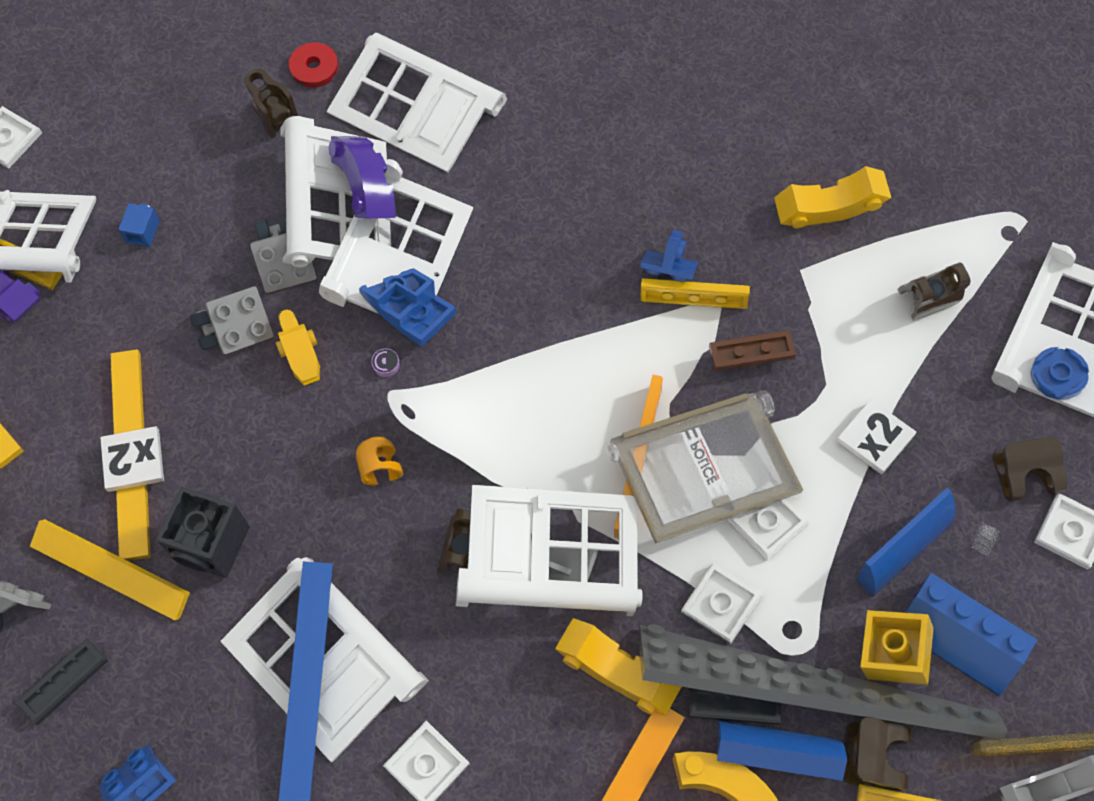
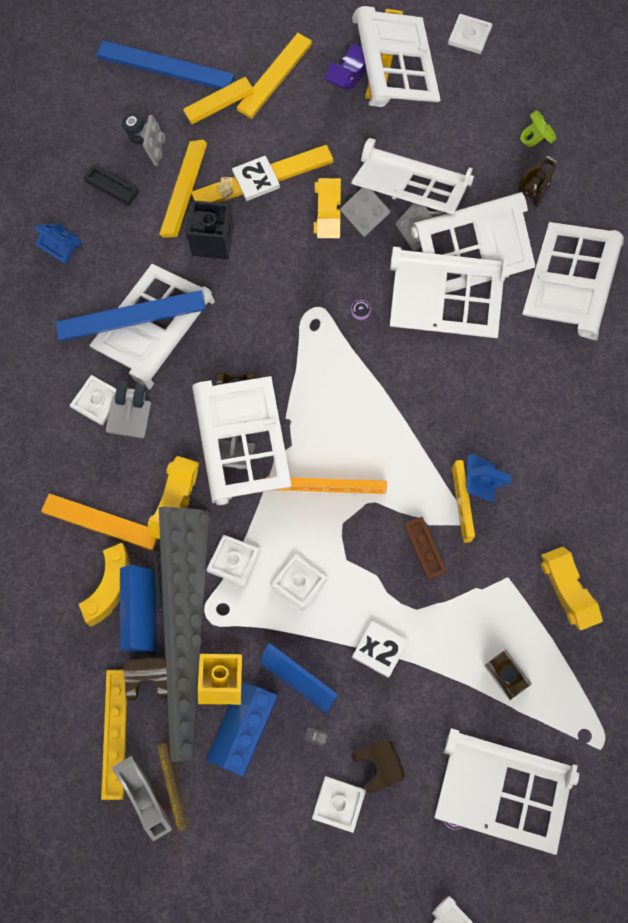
camera: 80 degrees right, 5 degrees up
(132, 503) = (225, 188): none -> clear piece
(139, 224) = (423, 131): blue brick -> none
(192, 84) = (540, 129): none -> lime tile
(196, 279) = (392, 173): none -> white door
(238, 373) = (328, 215): none -> yellow brick
(298, 347) = (355, 252): yellow hinge -> none
(313, 53) = (590, 194): red tile -> none
(366, 176) = (492, 251): dark purple brick -> none
(367, 459) = (281, 315): light orange helmet -> none
(410, 304) = (402, 312): blue slope -> none
(462, 713) = (128, 411): none -> light grey plate
(705, 465) = (326, 529): clear door -> none
(1060, 373) = (464, 783): blue tile -> none

